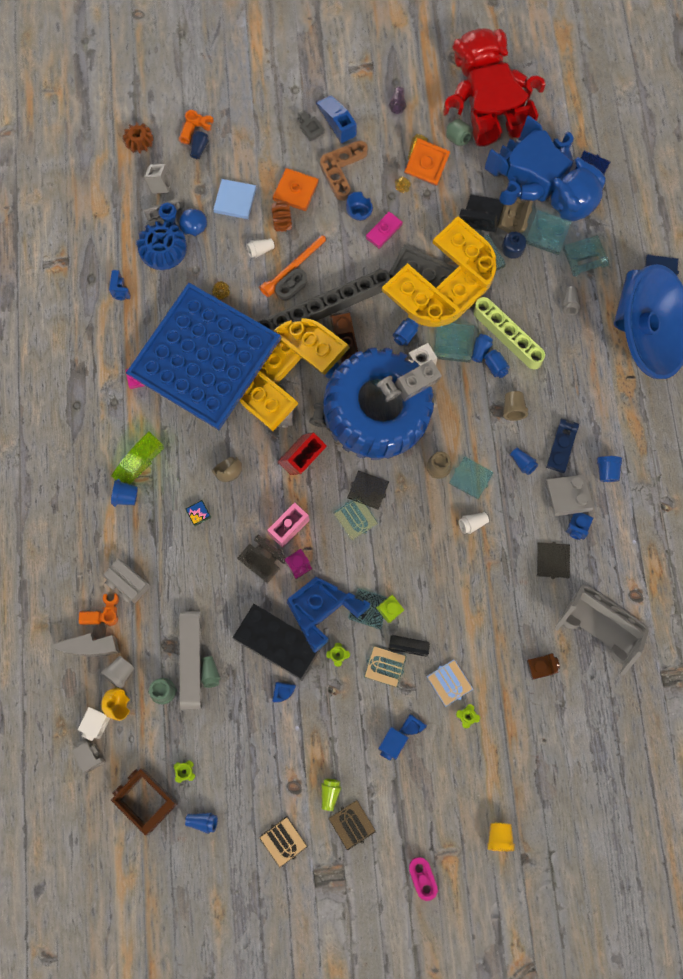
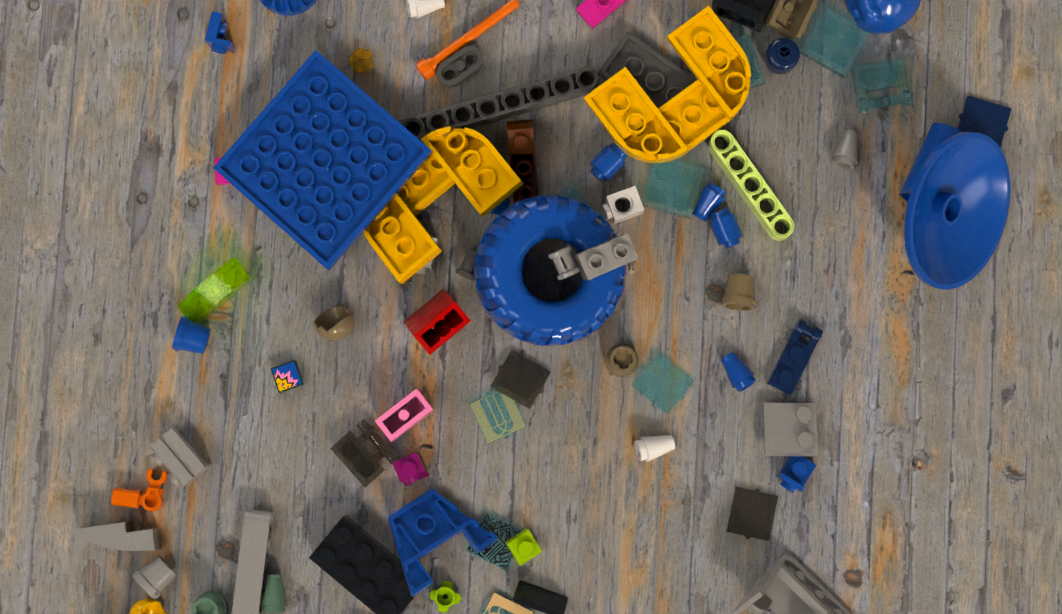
camera: 10 degrees right, 10 degrees up
(609, 468) = (851, 401): blue piece -> none

